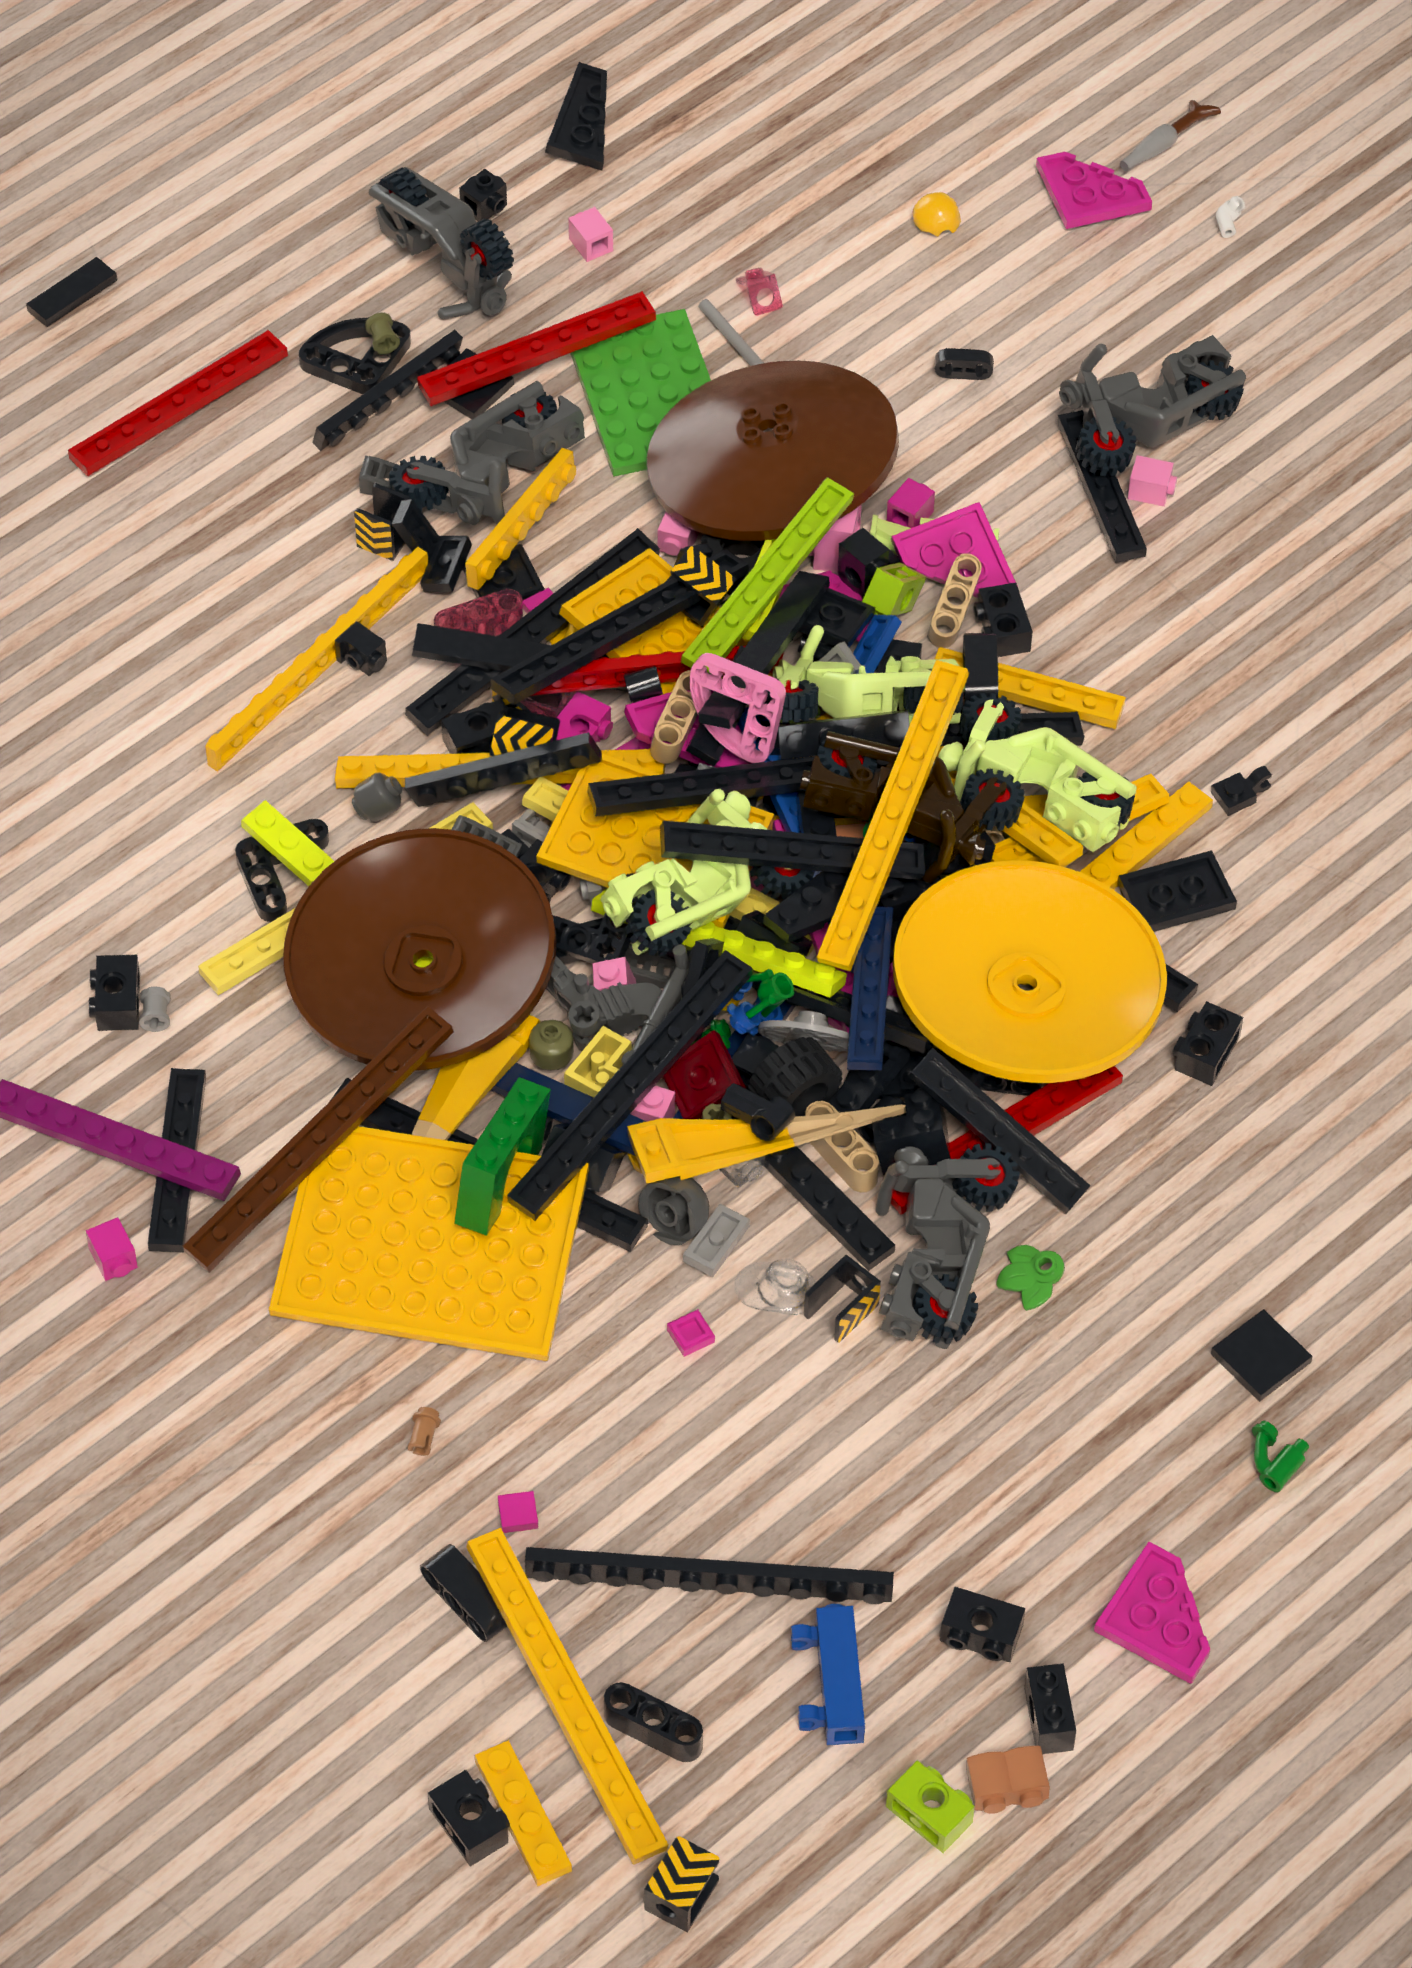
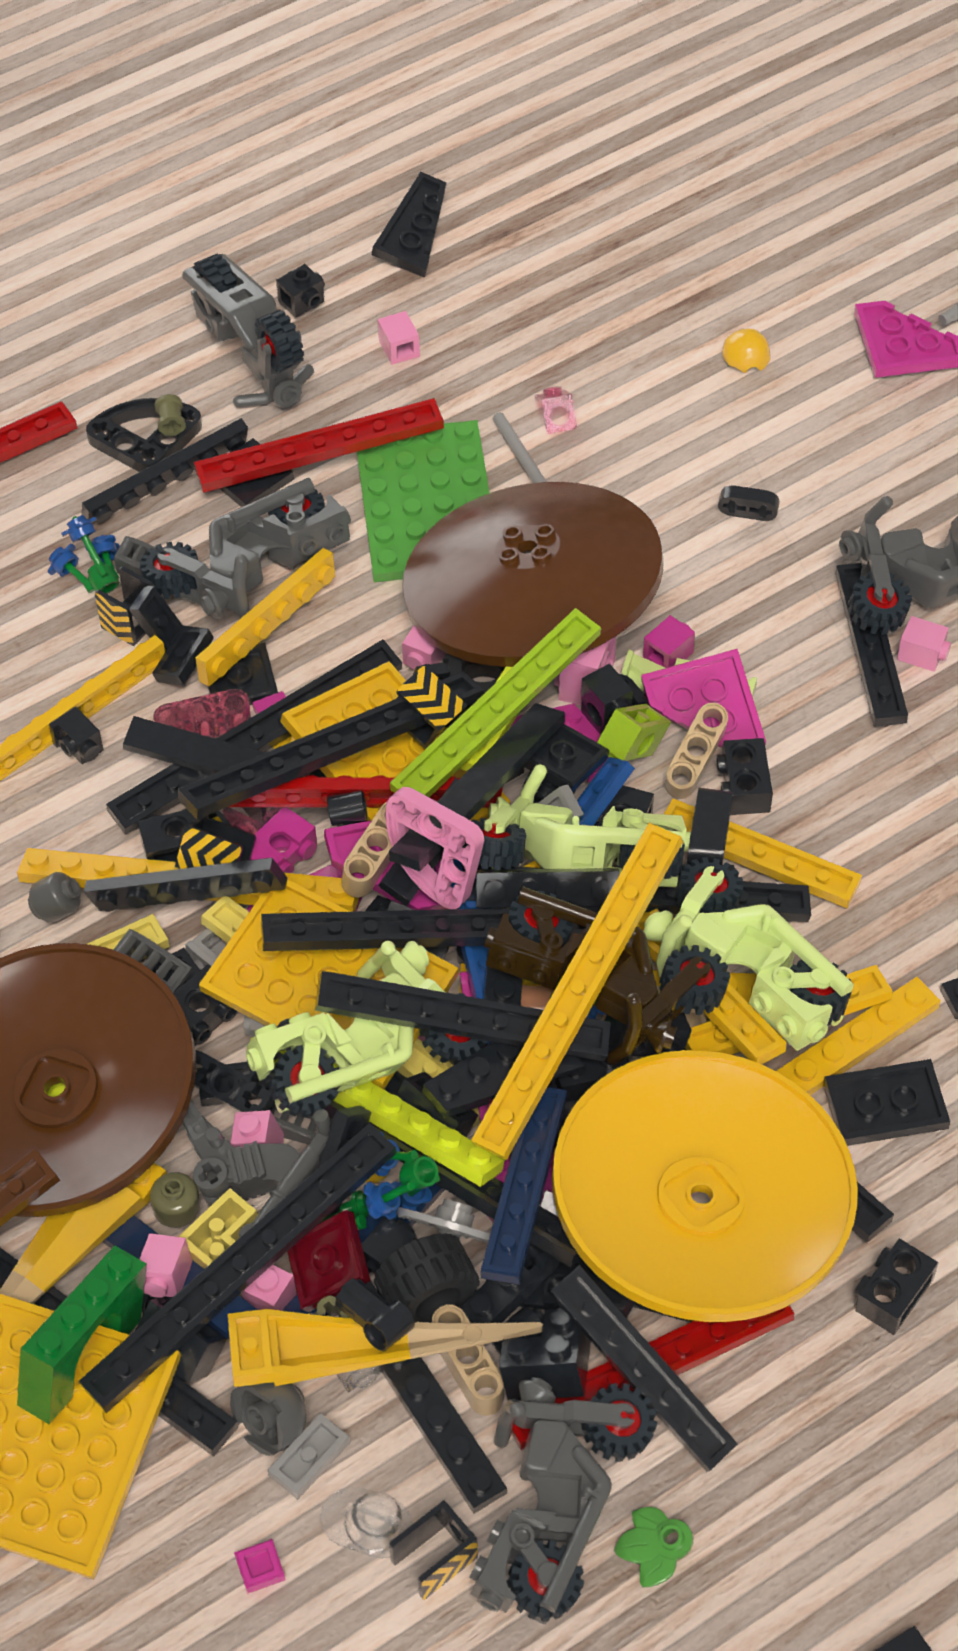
camera: 10 degrees right, 0 degrees up
(343, 471) = (101, 550): none -> plant
(563, 1095) = (167, 1264): none -> bright pink brick

